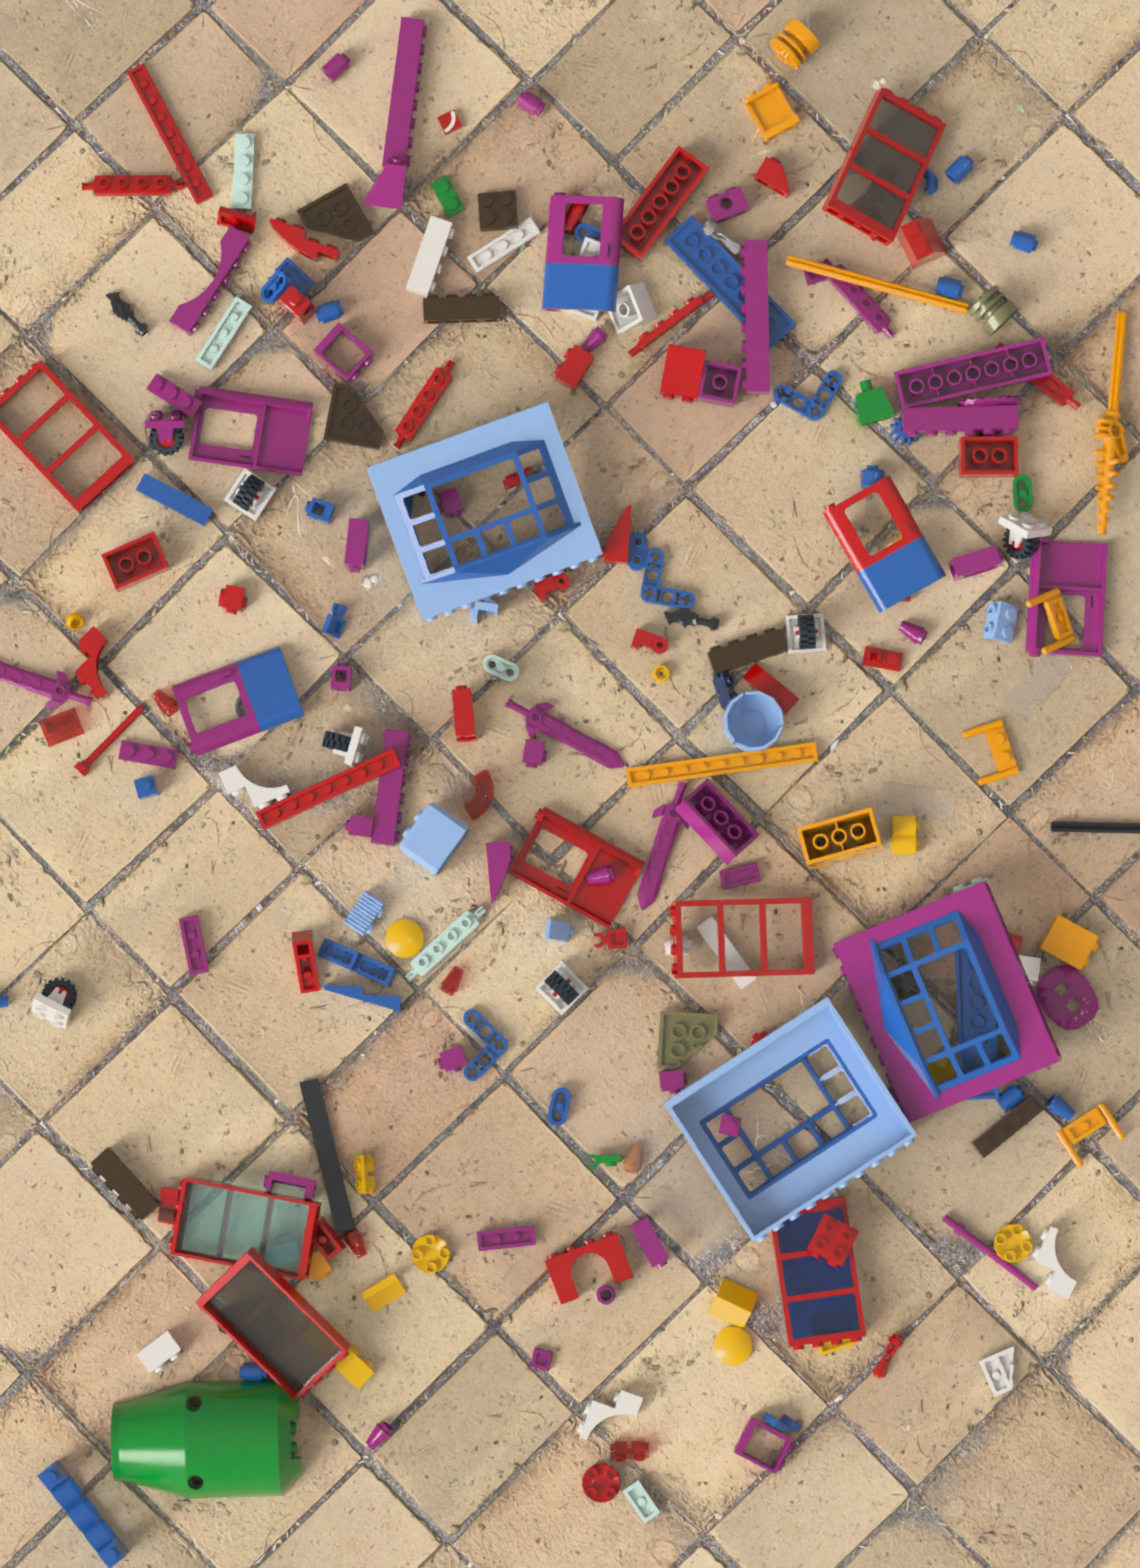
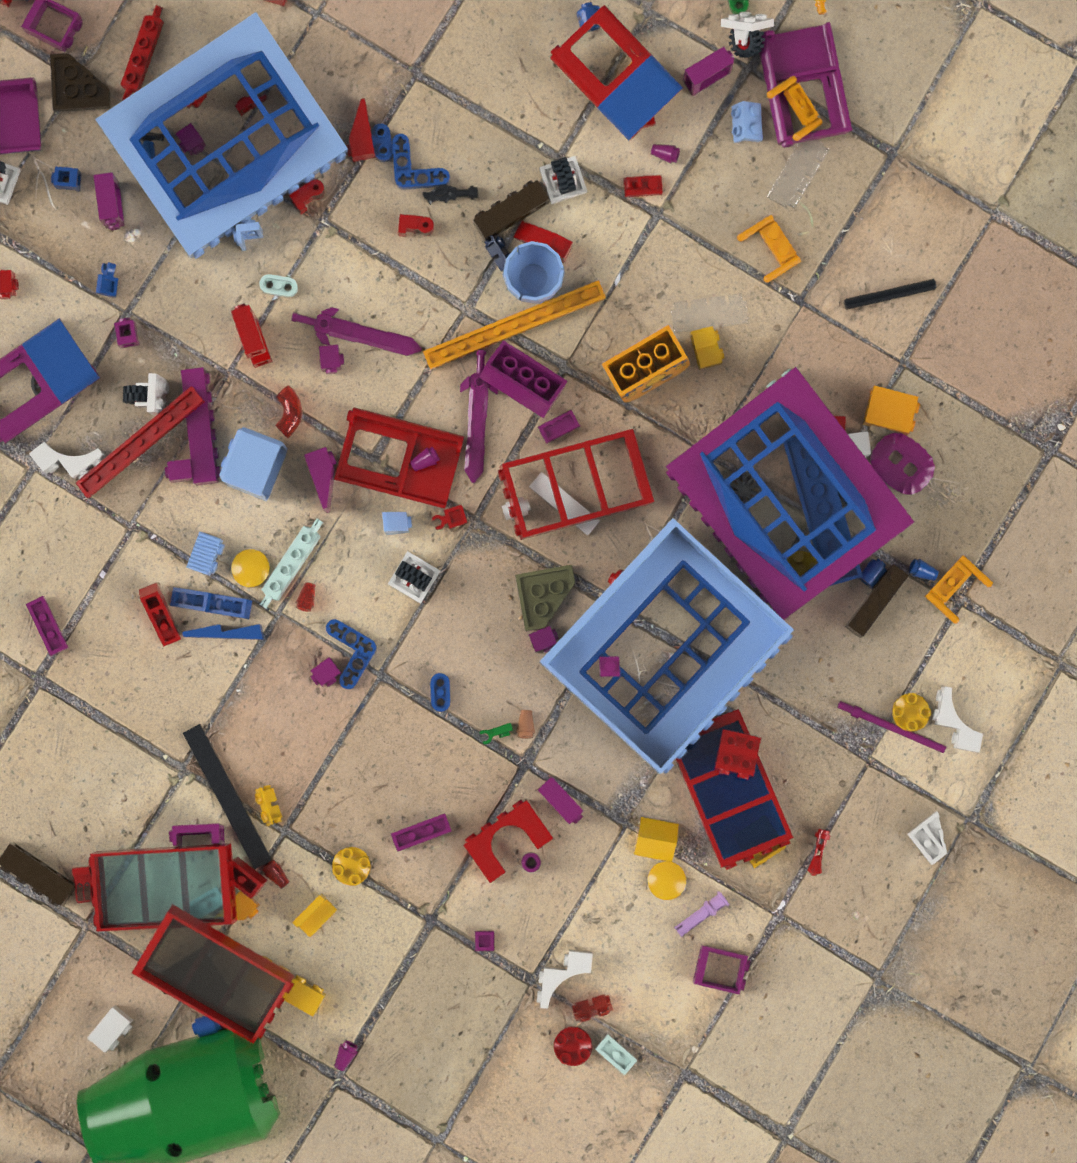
camera: 15 degrees left, 0 degrees up
(661, 668) = (430, 249): yellow plate -> none
(767, 1384) = (709, 909): none -> lavender pin
(784, 1424) = (736, 943): blue slope -> none

